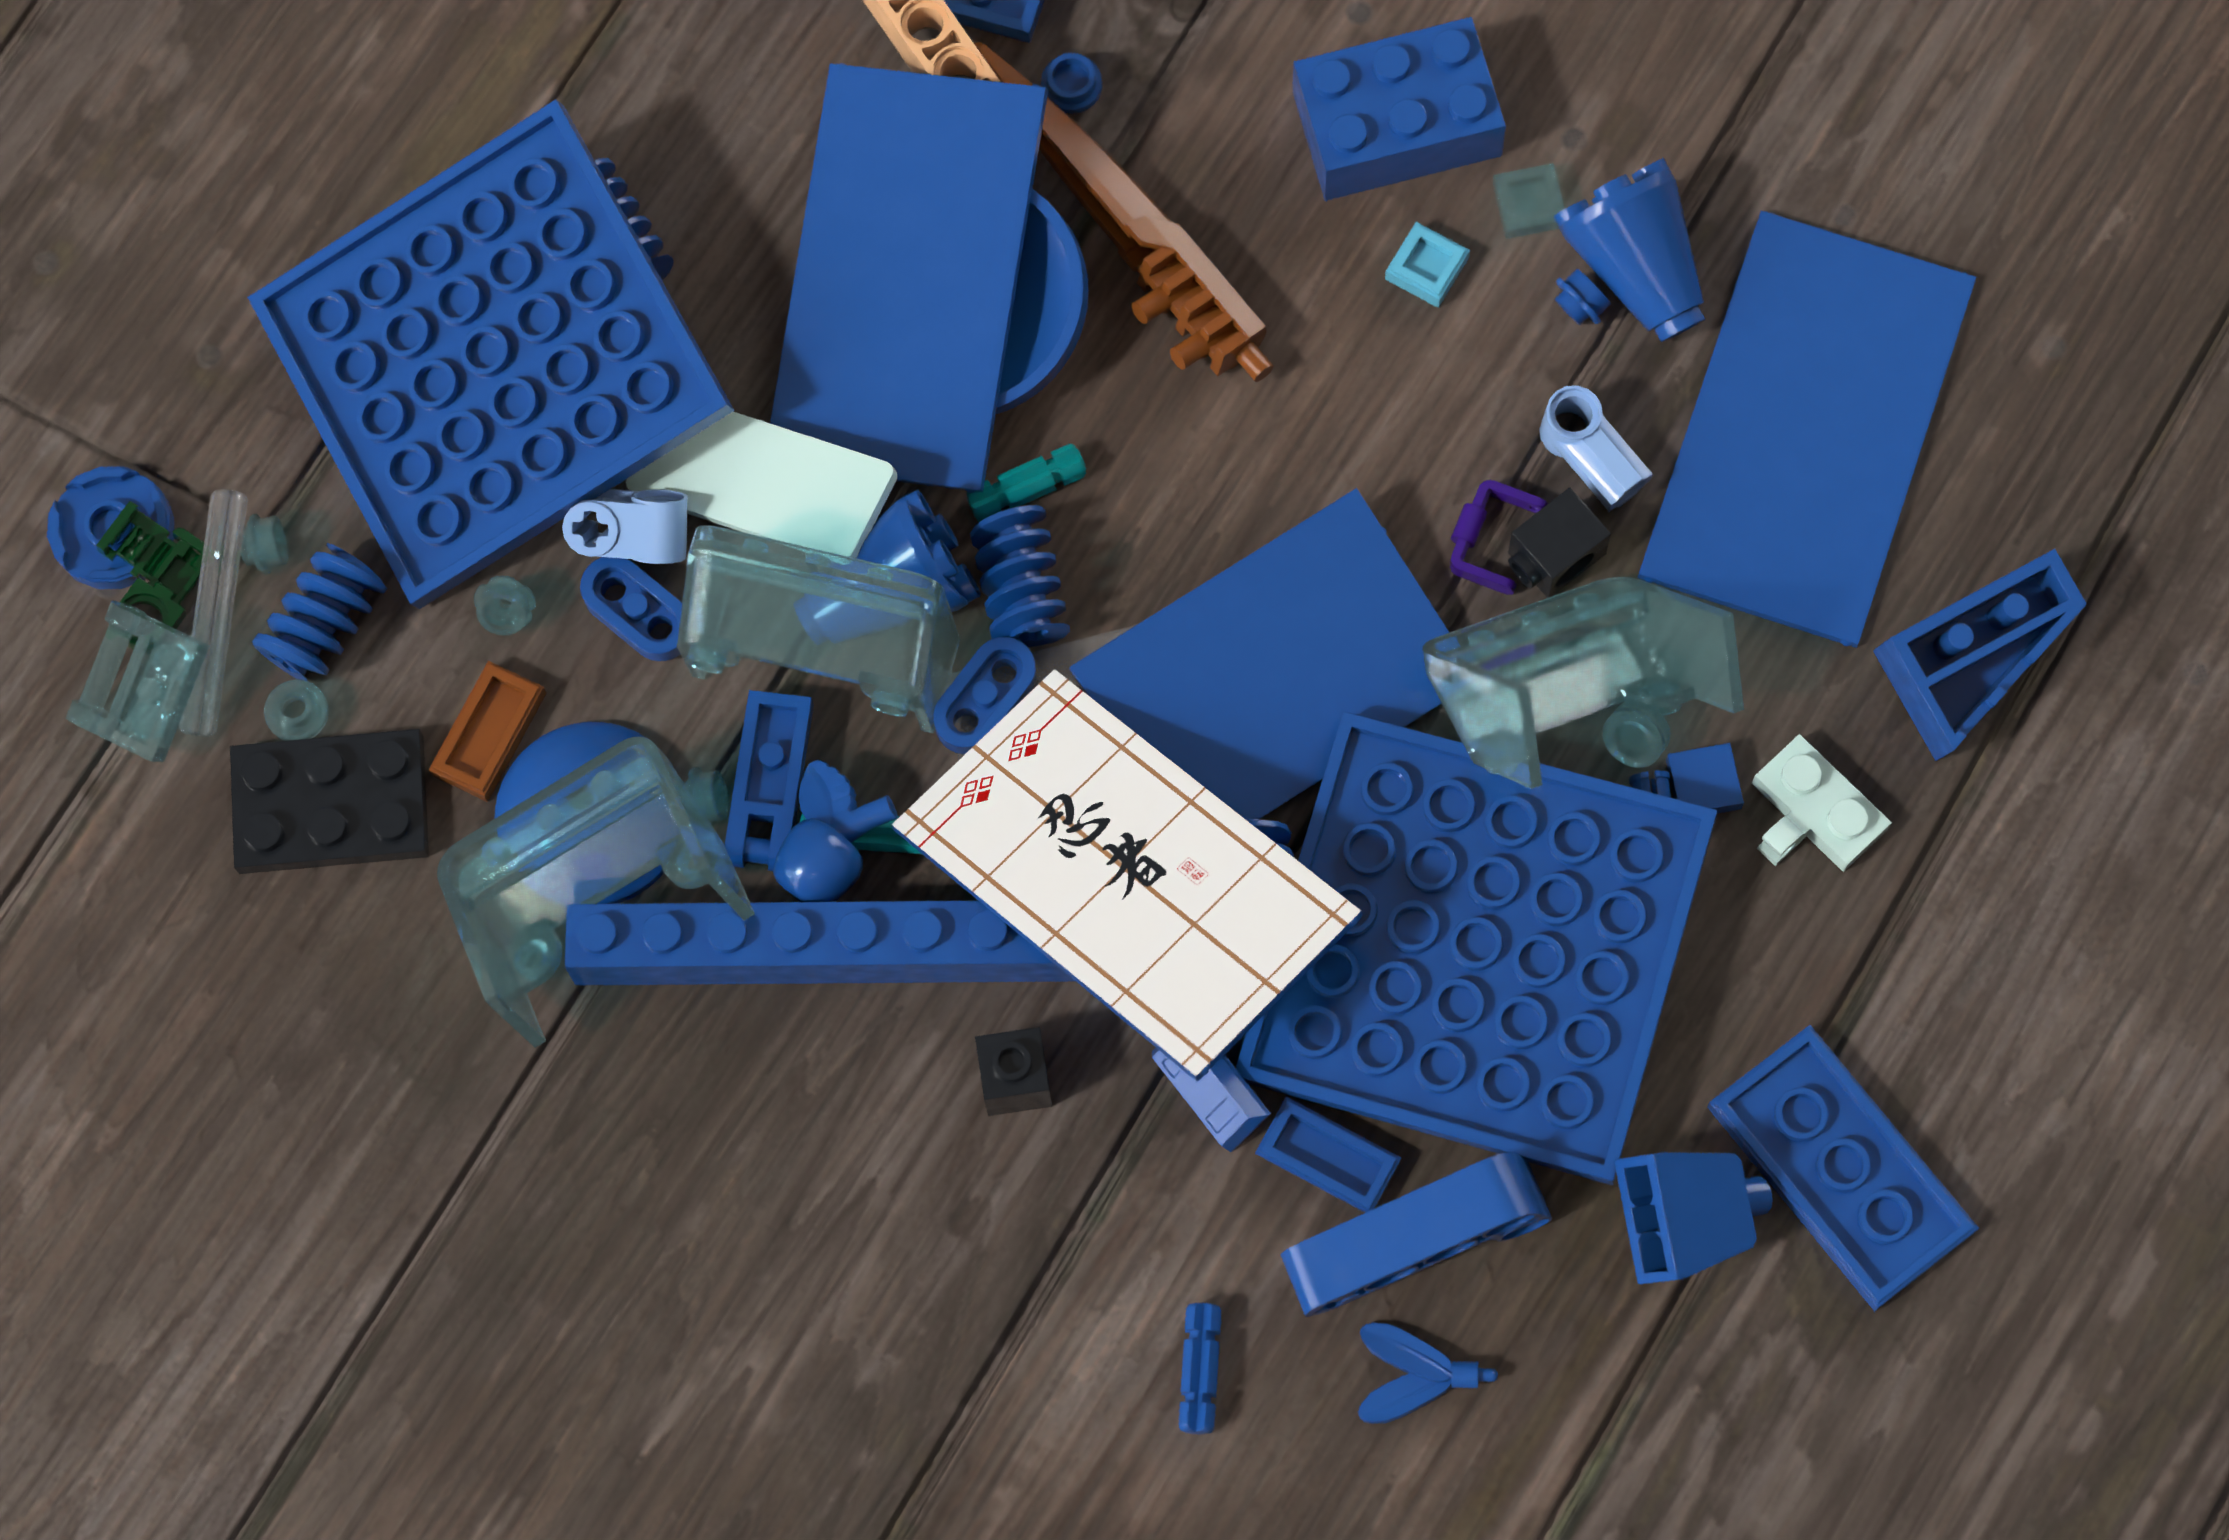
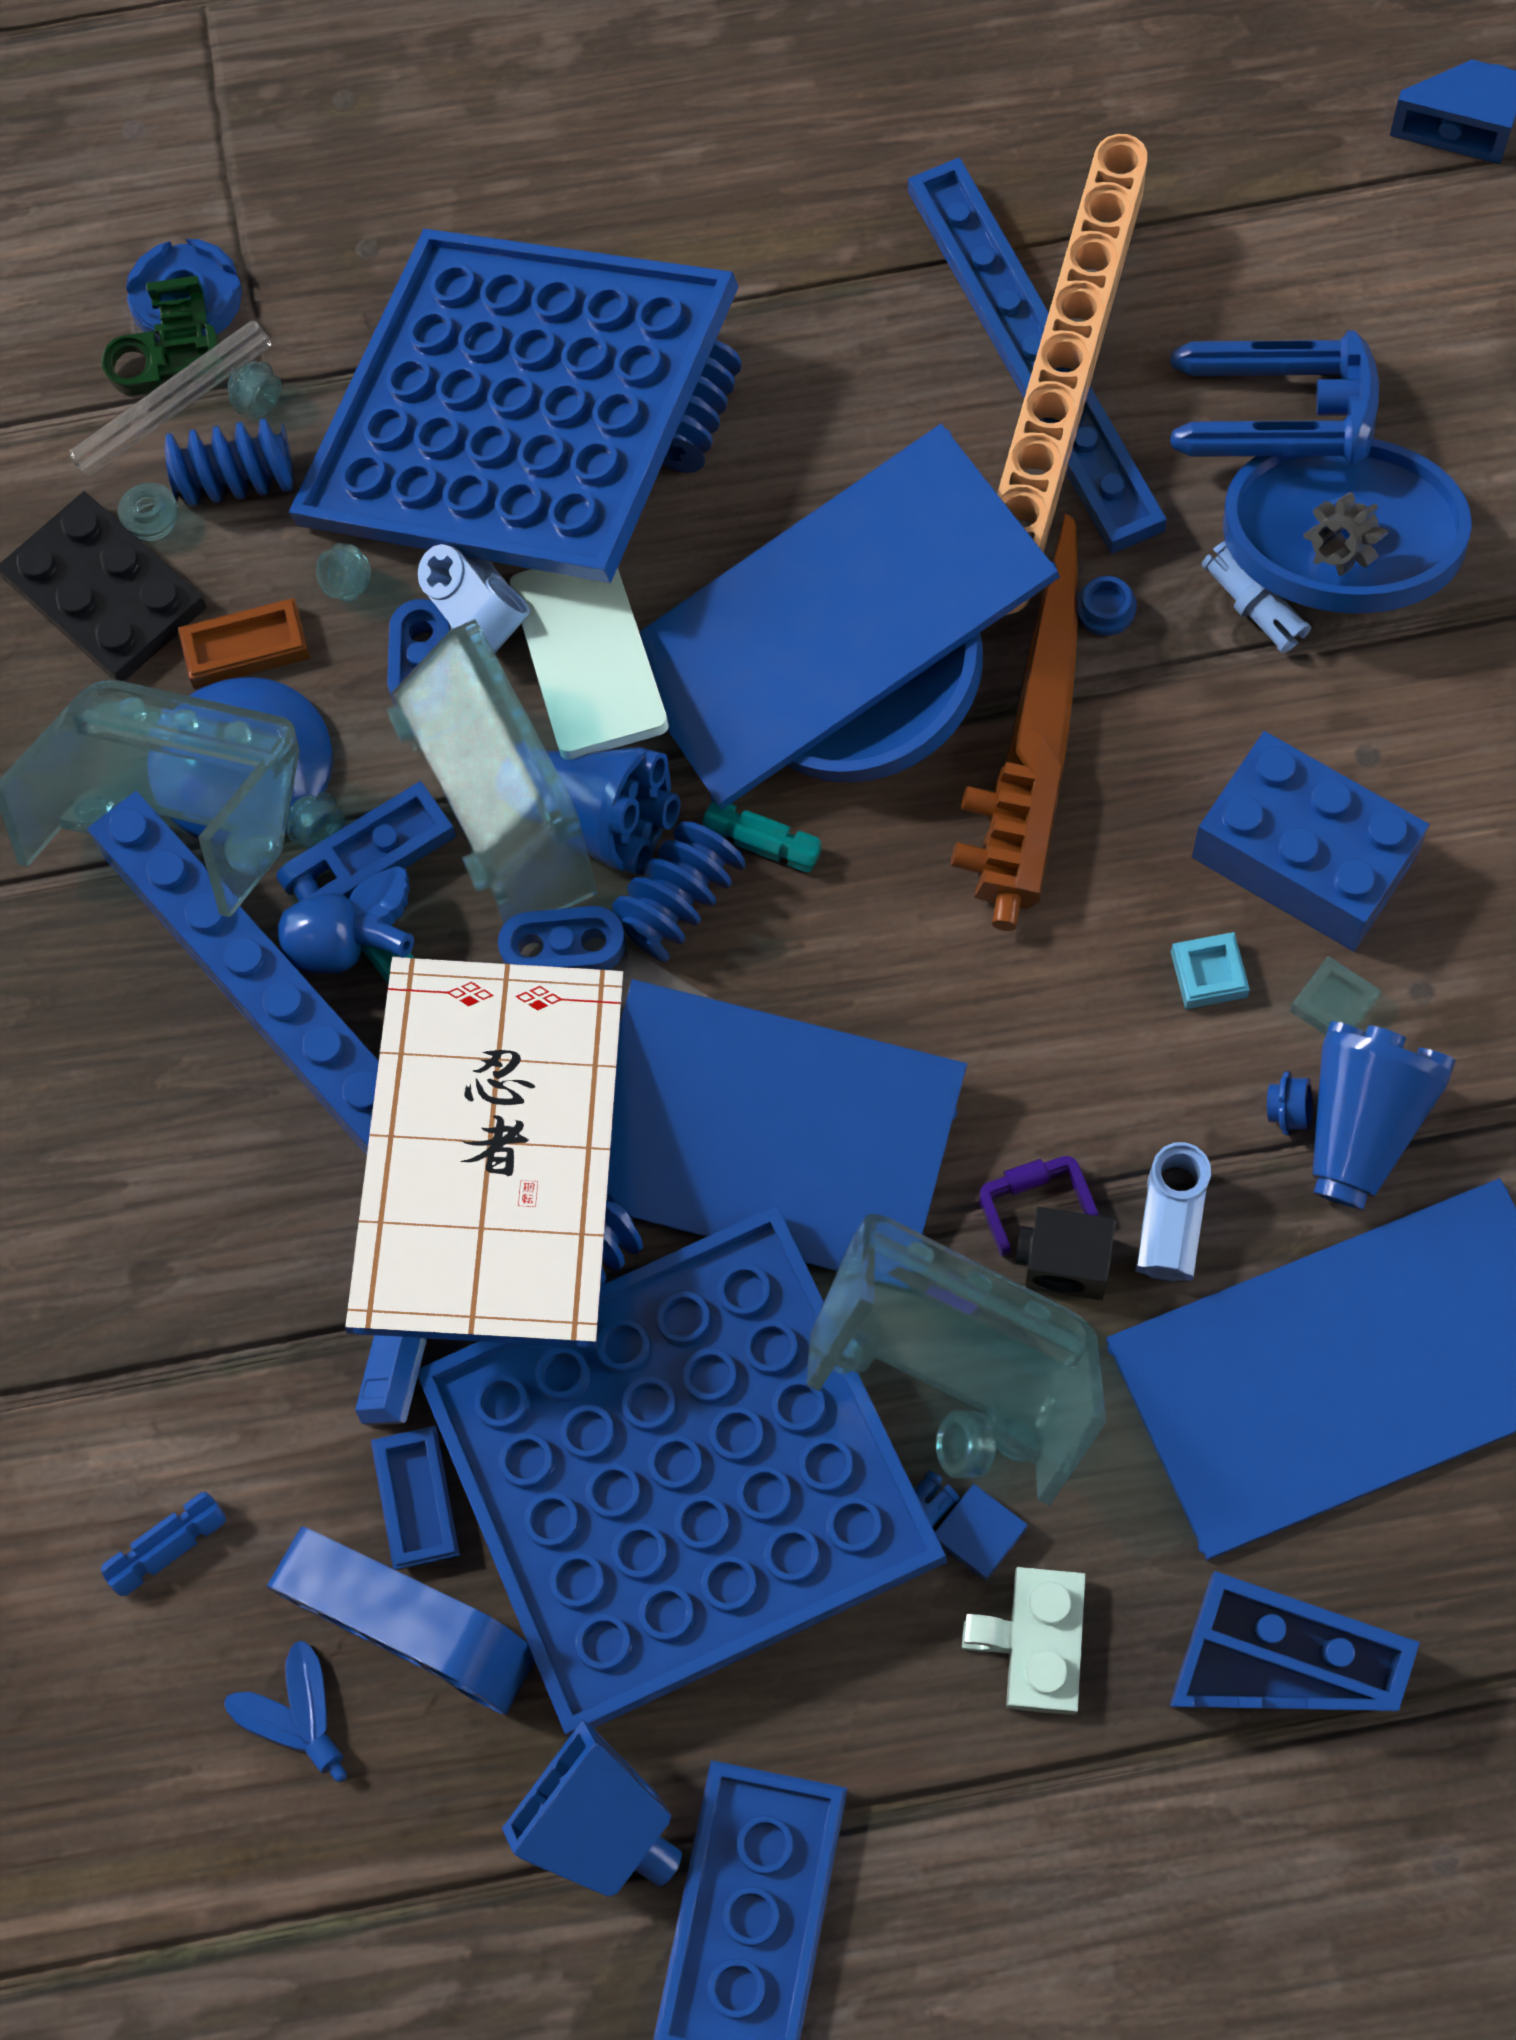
camera: 50 degrees right, 5 degrees down
(152, 687) = (73, 394): clear light blue plate -> none
(1013, 1071) = (281, 1207): black brick -> none

